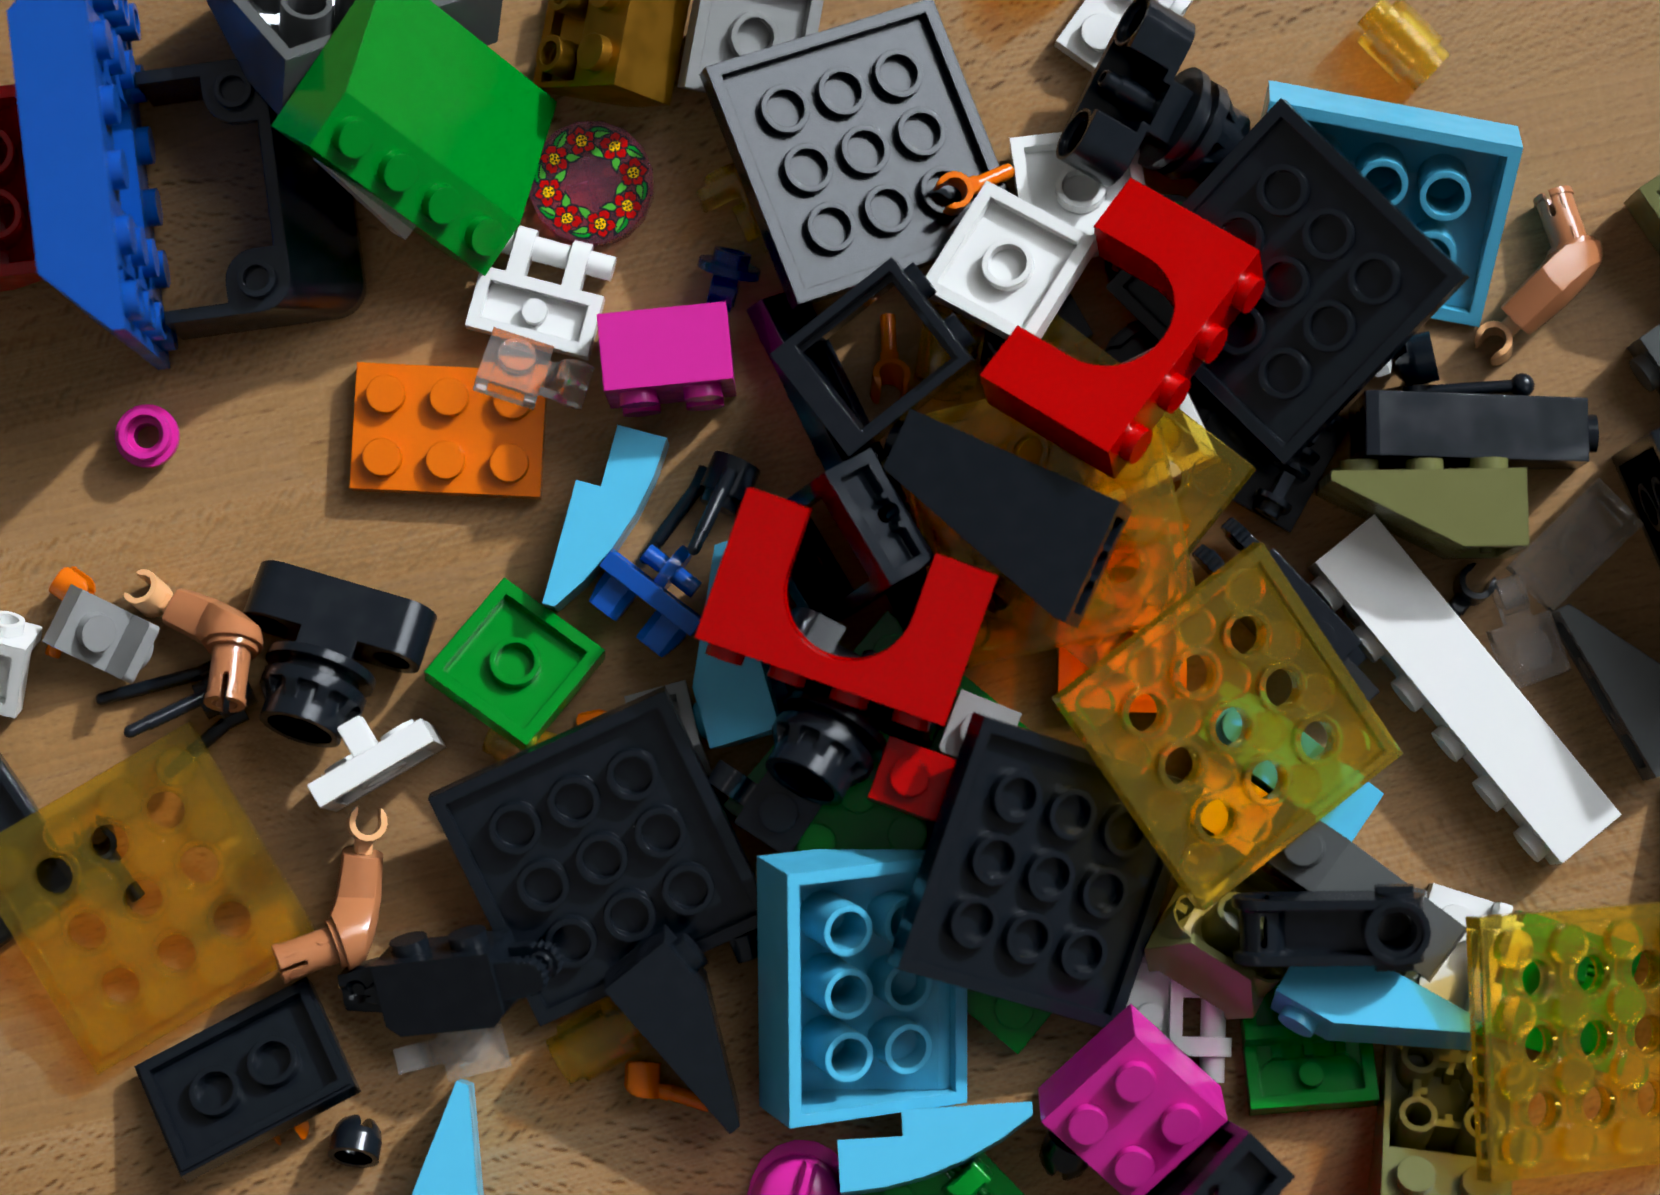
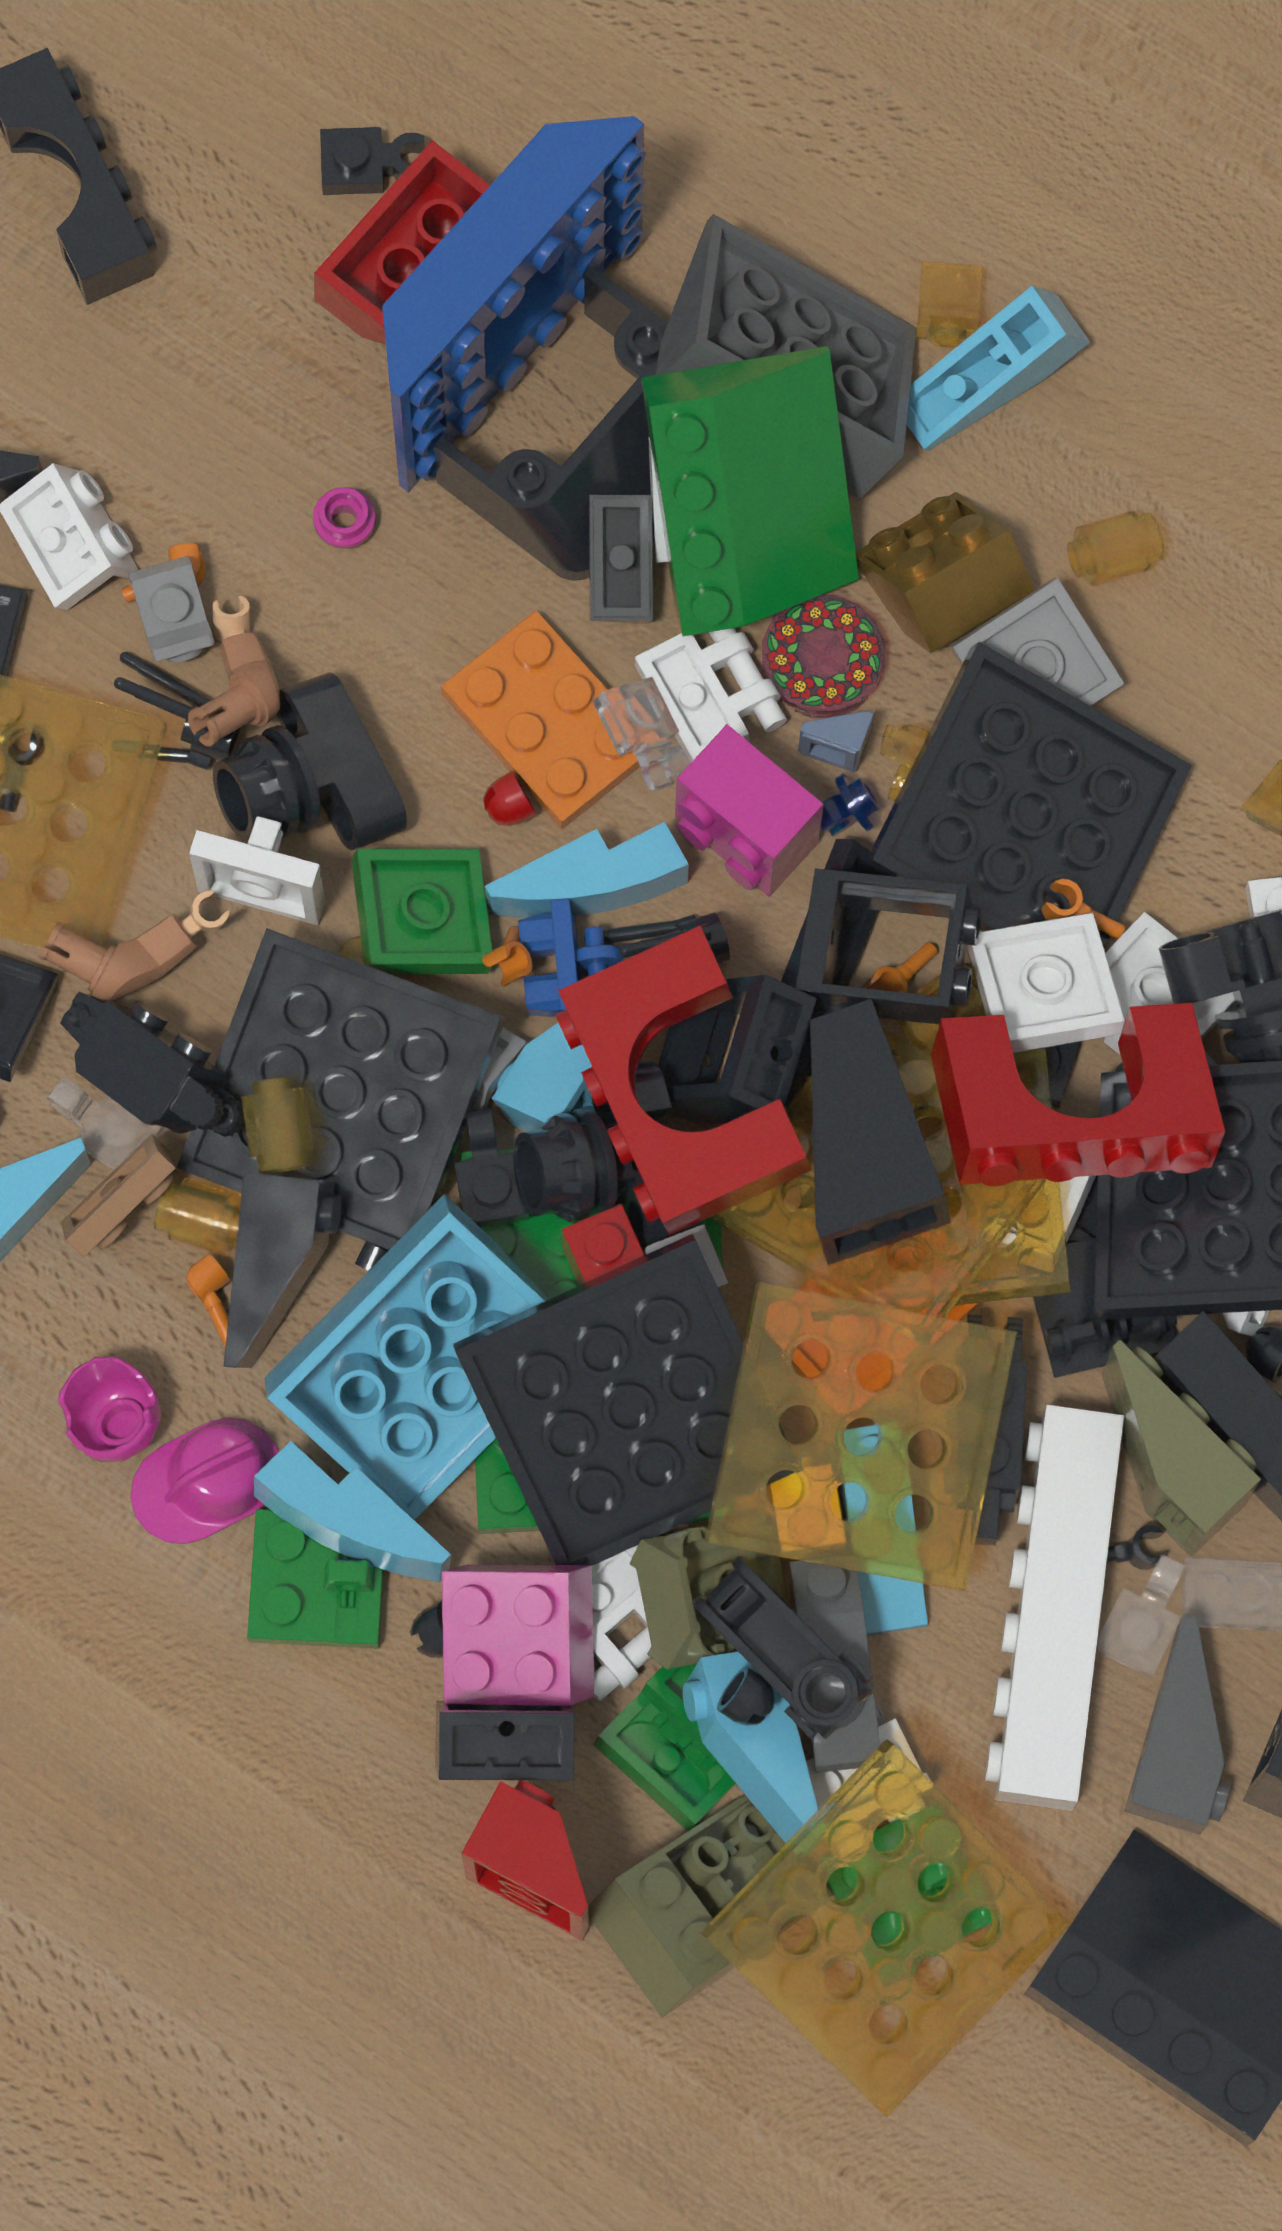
camera: 45 degrees right, 10 degrees down
(380, 264) = (620, 558): none -> dark grey slope
(486, 520) = (507, 801): none -> red hinge
(524, 1104) = (102, 1213): none -> medium nougat plate
(588, 930) = (278, 1126): none -> clear yellow brick
(612, 633) = (511, 957): none -> orange hand
(670, 236) = (837, 739): none -> sand blue slope
(1341, 990) = (747, 1698): none -> black hinge

